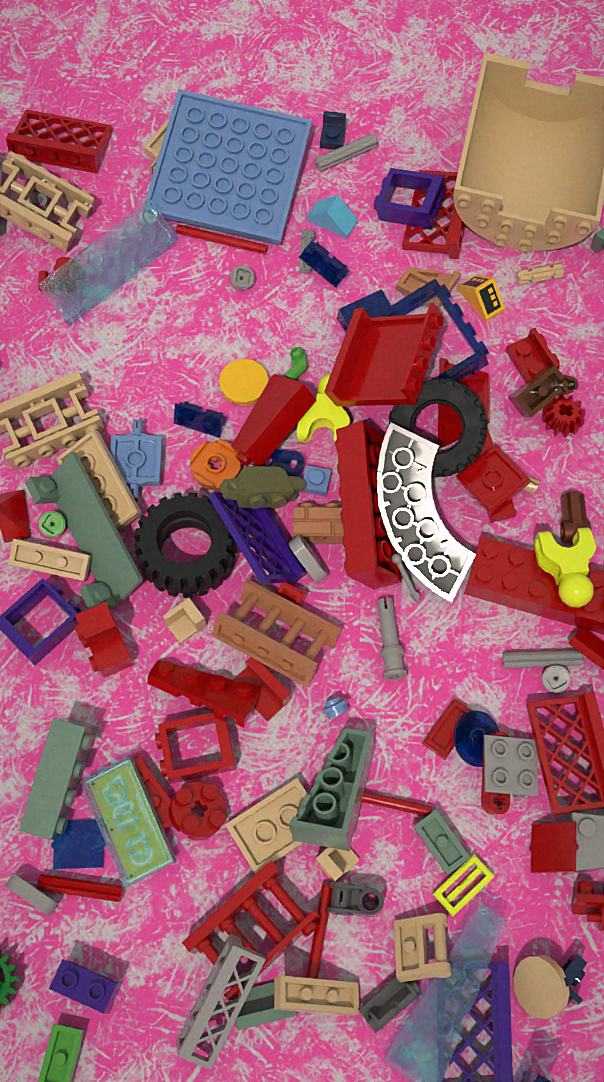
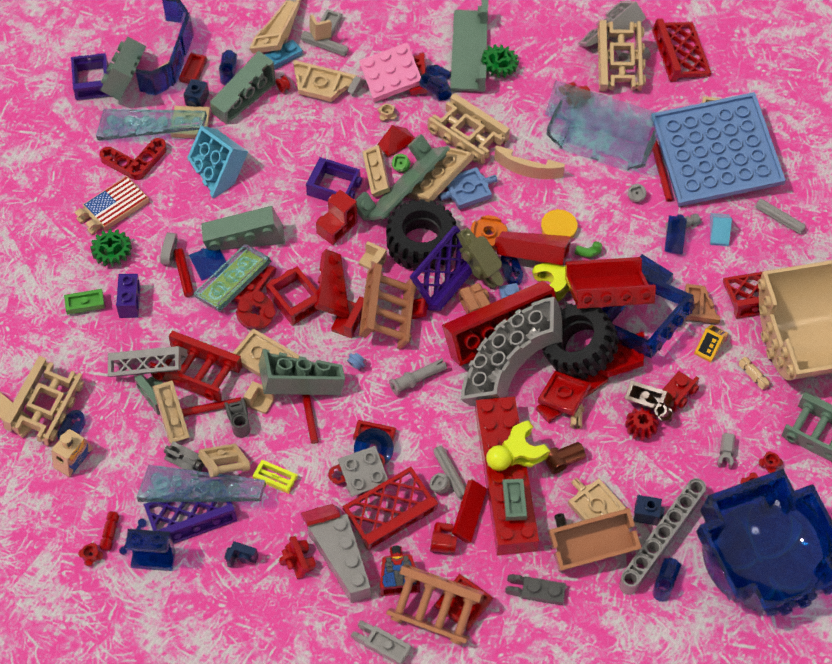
camera: 65 degrees right, 10 degrees down
(116, 396) = (528, 168): none -> tan slope
(155, 282) = (597, 145): none -> clear light blue windscreen
(194, 418) = (517, 204): clear blue hinge -> none
(308, 558) = (448, 306): light grey beam -> none
(333, 130) = (792, 202): dark blue bracket -> none
(396, 559) = (471, 352): light grey hinge -> none
(405, 214) = (757, 251): dark purple window -> none
(441, 842) = (296, 451): sand green plate -> none
(541, 986) = (224, 536): tan tile -> none

